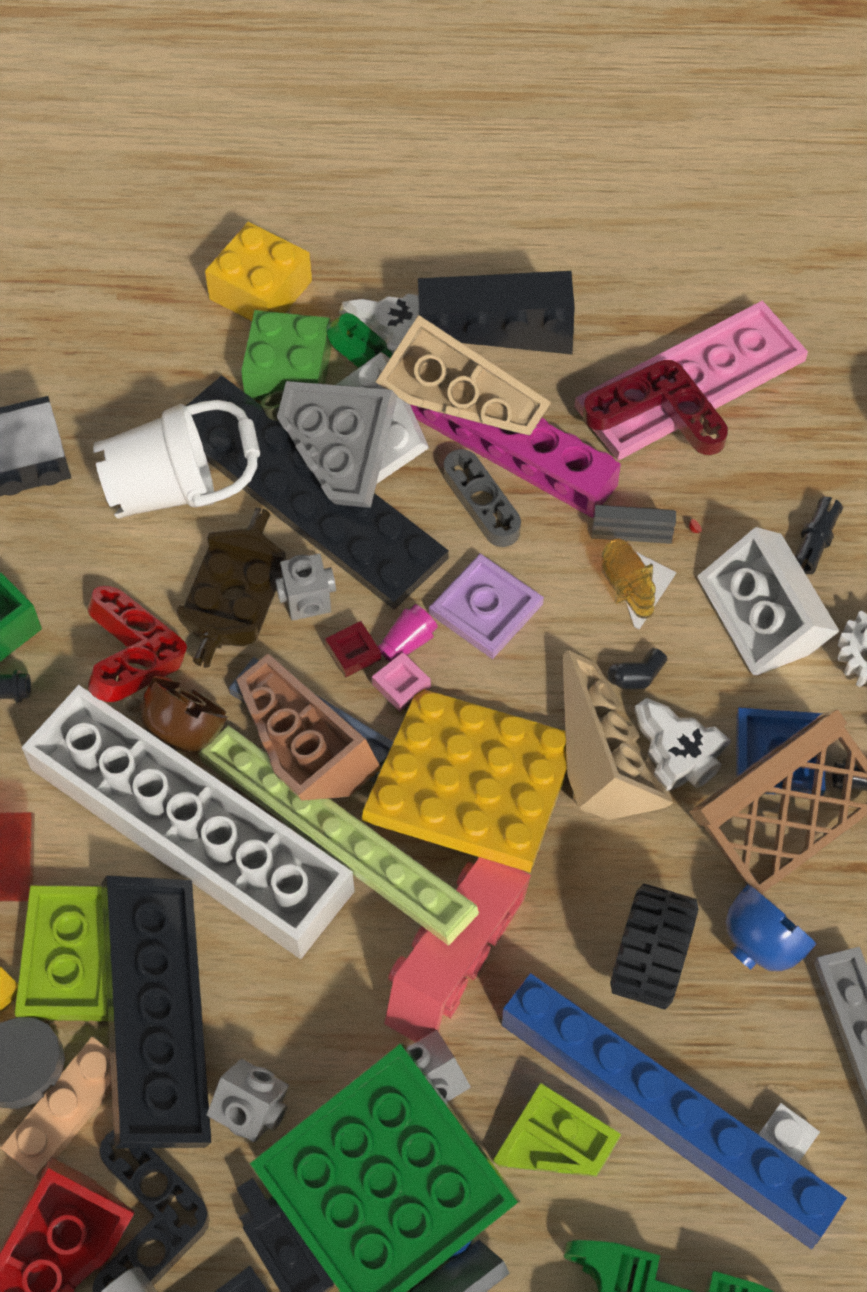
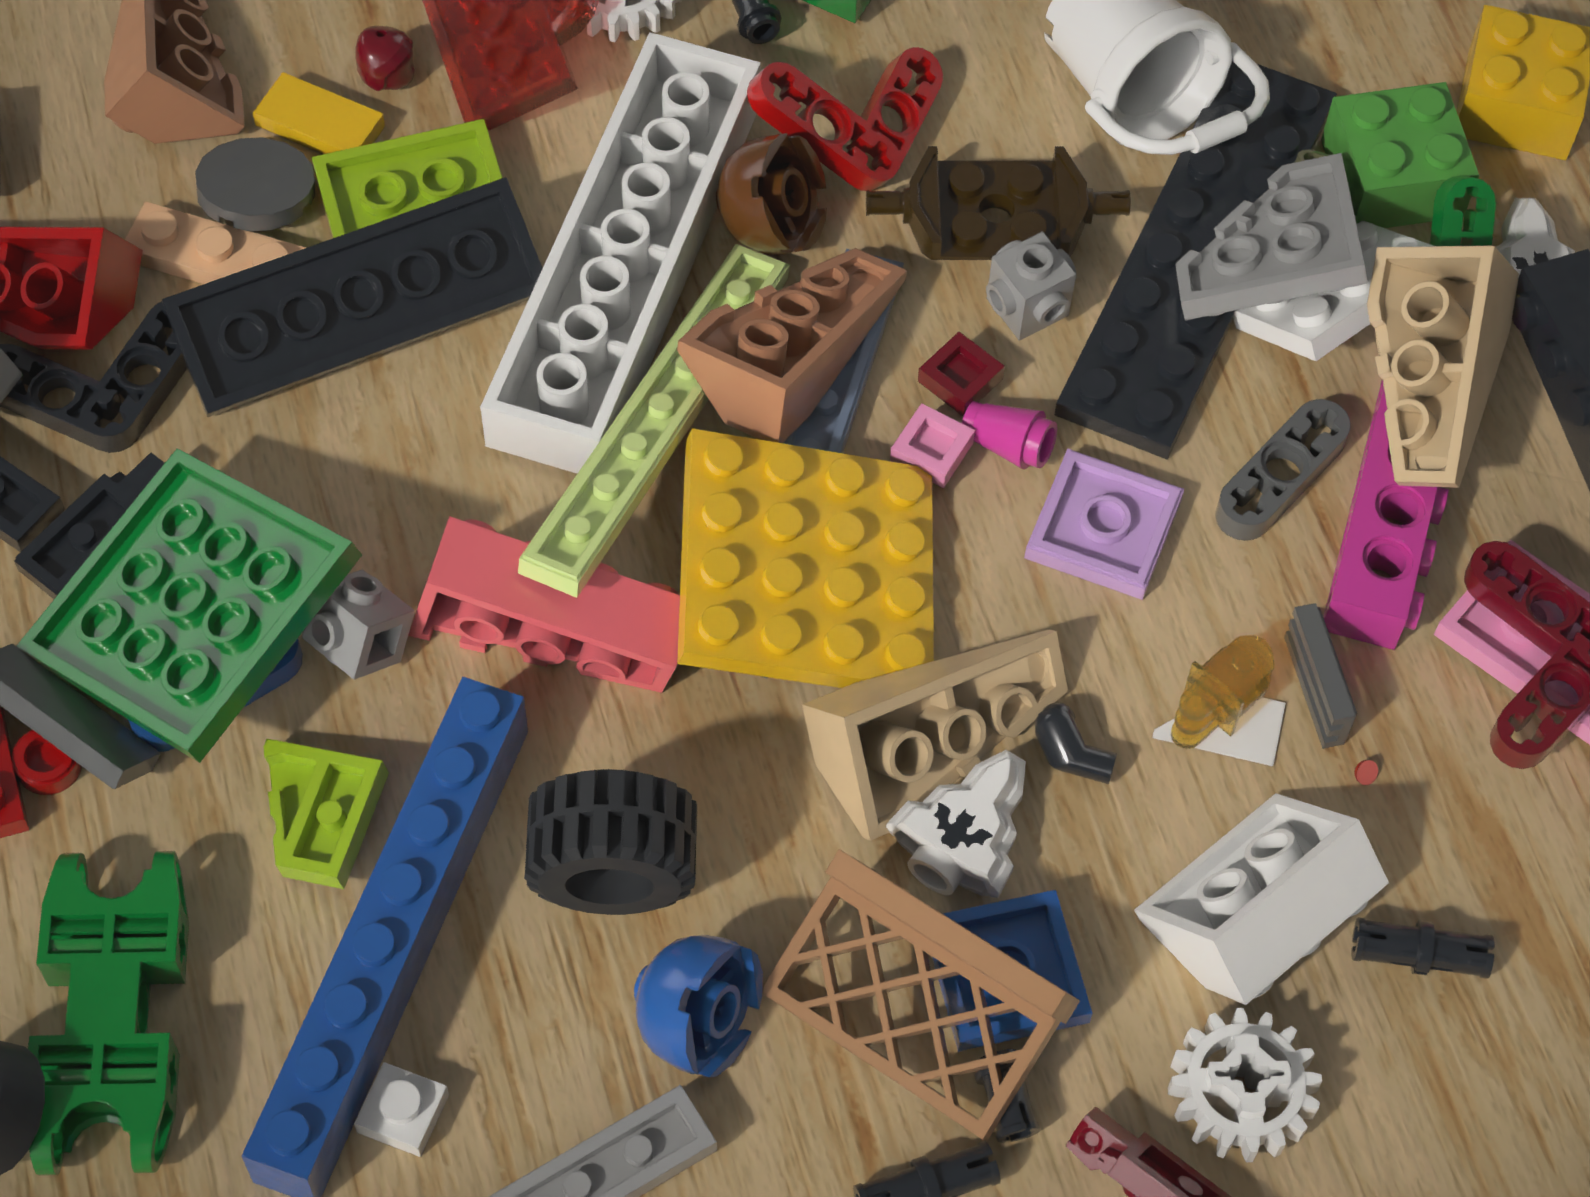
camera: 70 degrees right, 0 degrees up
(249, 1100) = (266, 431): light grey brick -> none

